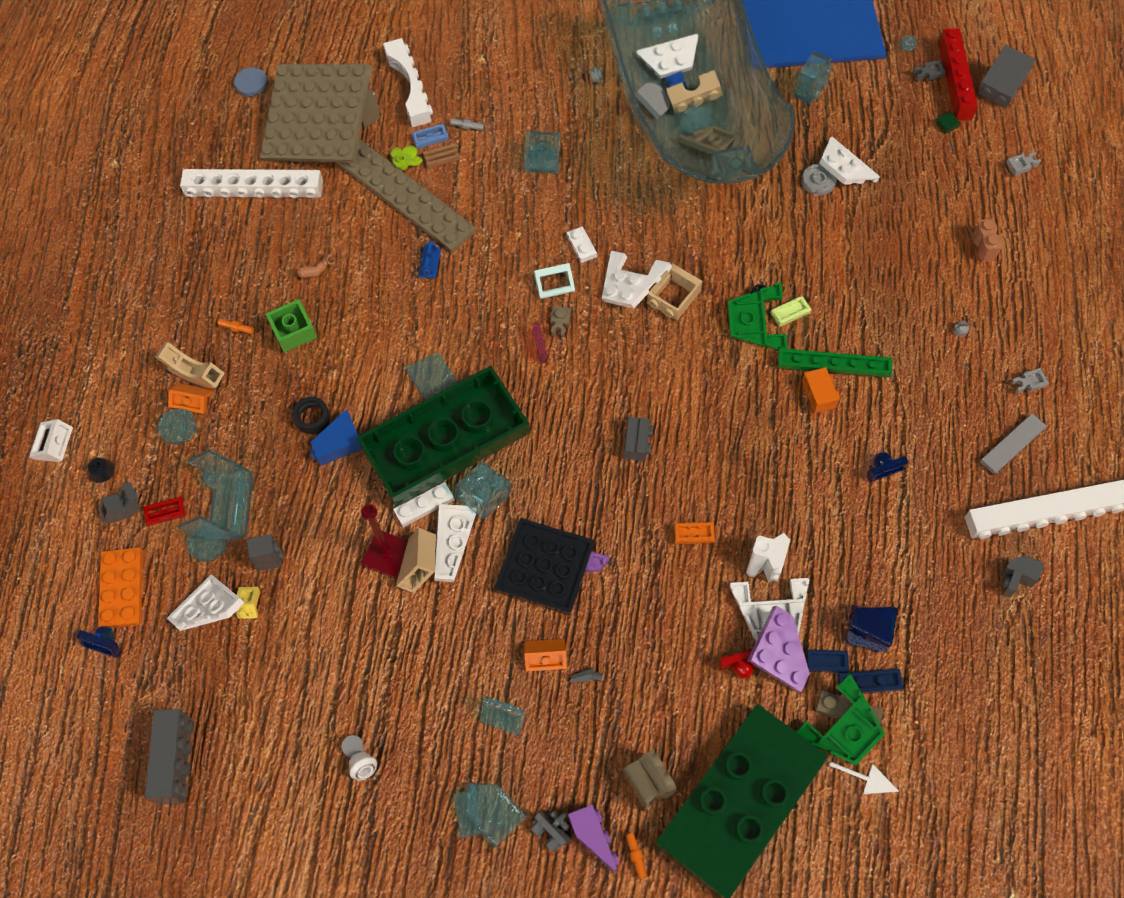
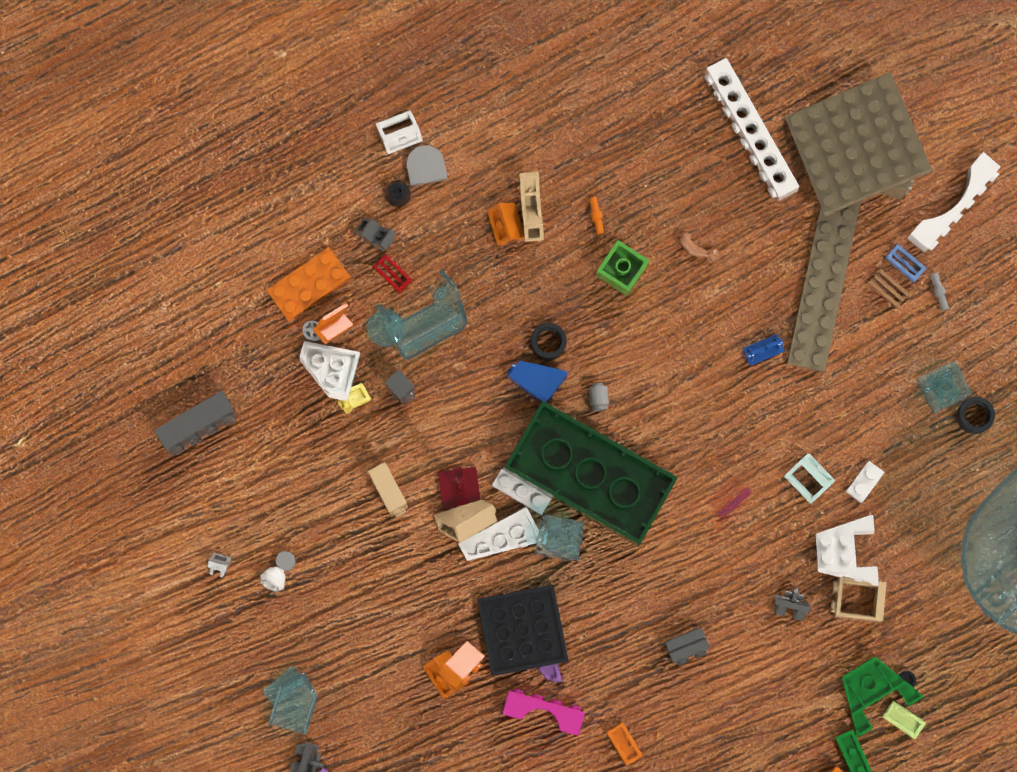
camera: 55 degrees right, 15 degrees up
(95, 435) = (426, 166): none -> light grey tile
(100, 641) = (256, 300): clear blue tile -> none
(163, 601) = (308, 331): none -> light grey wheel
(169, 583) = (333, 325): none -> orange panel
(177, 426) = (473, 230): clear light blue tile -> none
(251, 81) = (867, 48): sand blue tile -> none
(313, 810) = (220, 563): none -> light grey tile
(347, 612) = (388, 490): none -> tan window
(384, 399) = (598, 397): none -> light grey brick
(405, 157) = (869, 255): lime plate -> none
(431, 375) = (645, 428): clear light blue piece -> none
(502, 716) = (373, 669): clear light blue tile -> none
(545, 631) = (461, 664): none -> brick
(560, 319) = (772, 506): dark tan plate -> none
(577, 135) = (961, 415): none -> black tyre
(586, 676) = (446, 719): dark grey bar -> none
(645, 568) = (568, 719): none -> dark pink arch
(656, 338) = (783, 602): none -> dark grey hips

